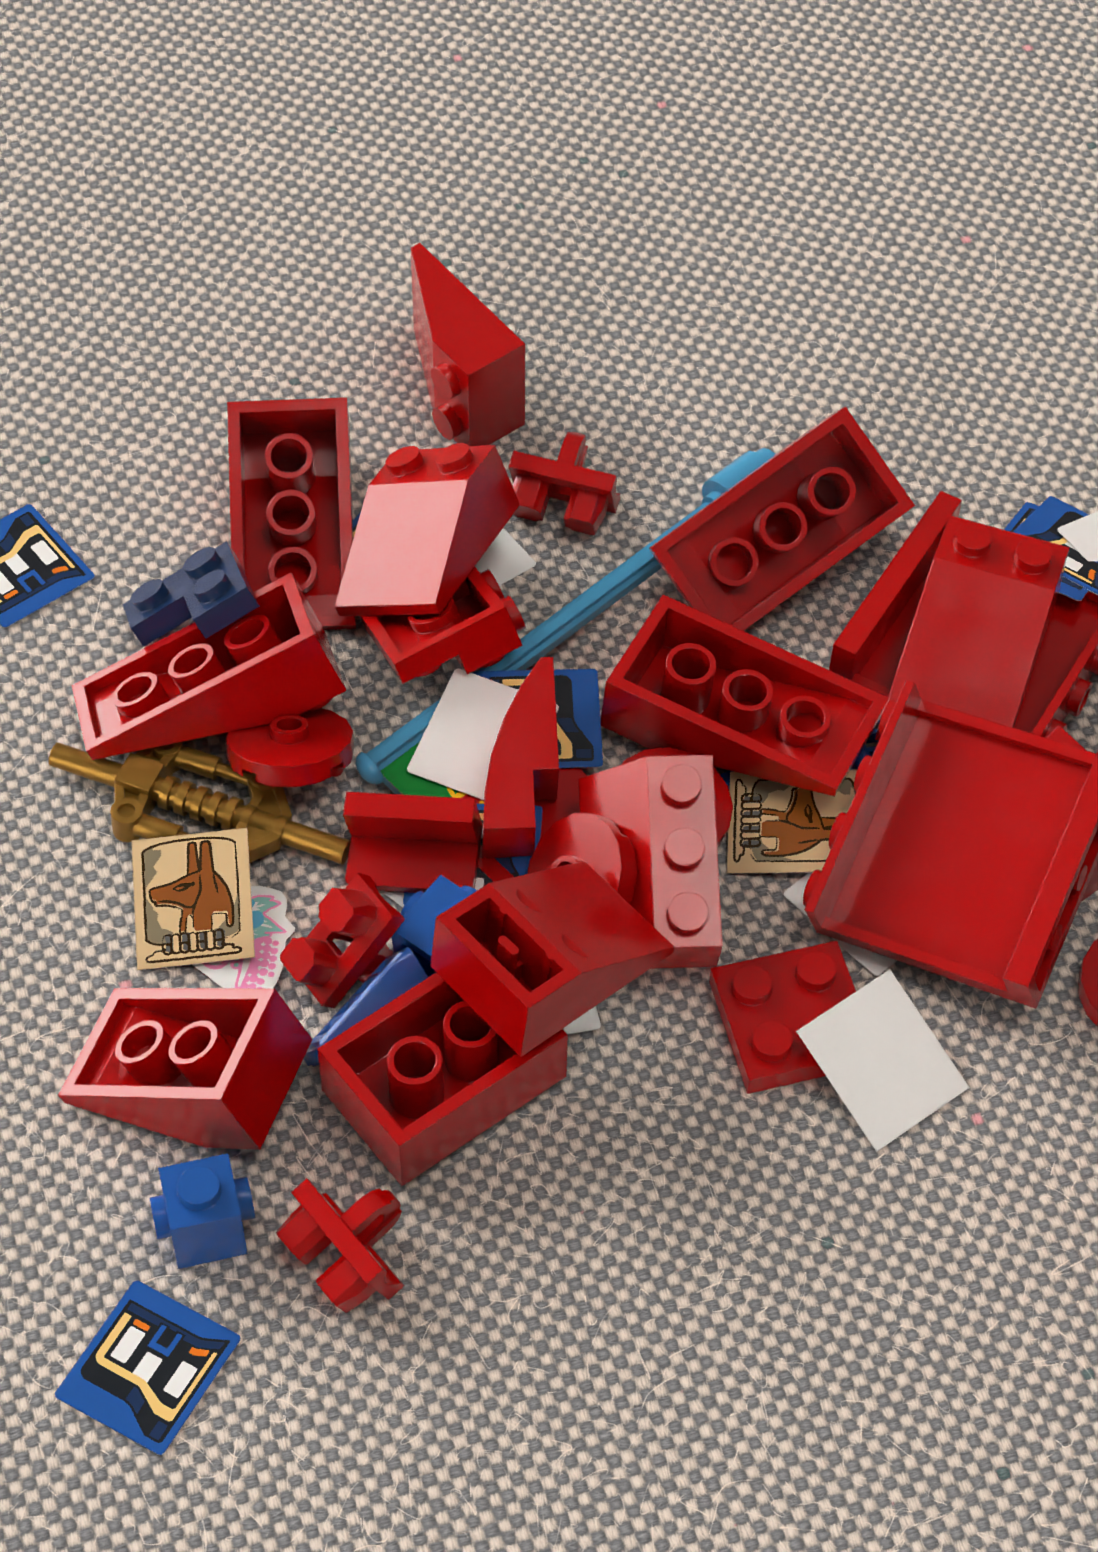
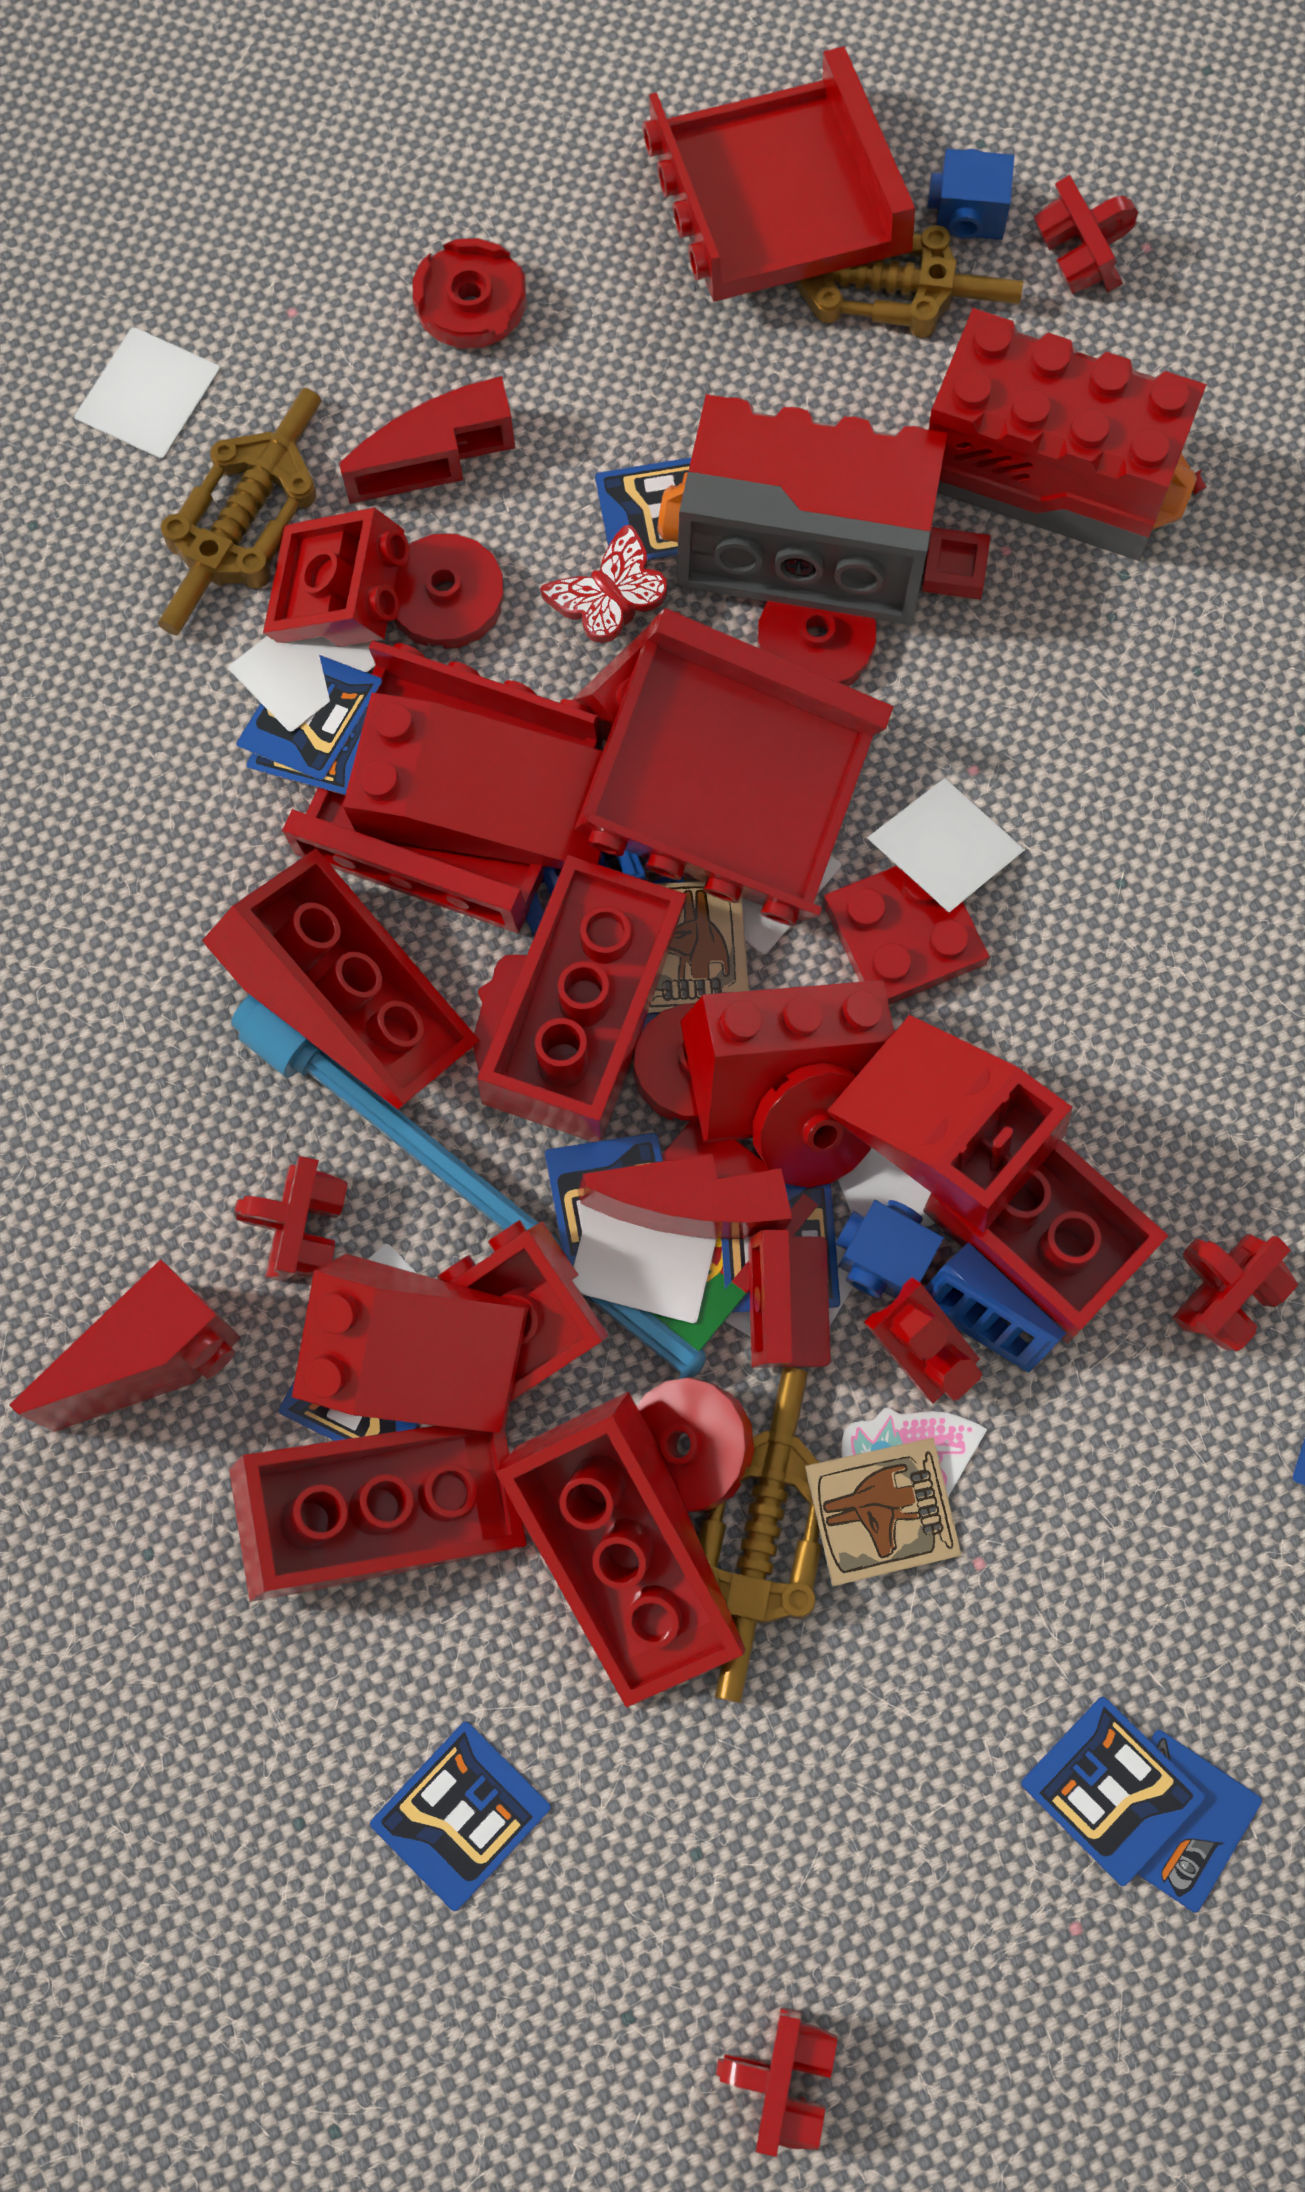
camera: 95 degrees left, 20 degrees up
(191, 1063) = (1078, 1476): red slope -> none
(203, 1210) = (1236, 1420): blue brick -> none
(207, 589) = (505, 1576): dark blue plate -> none

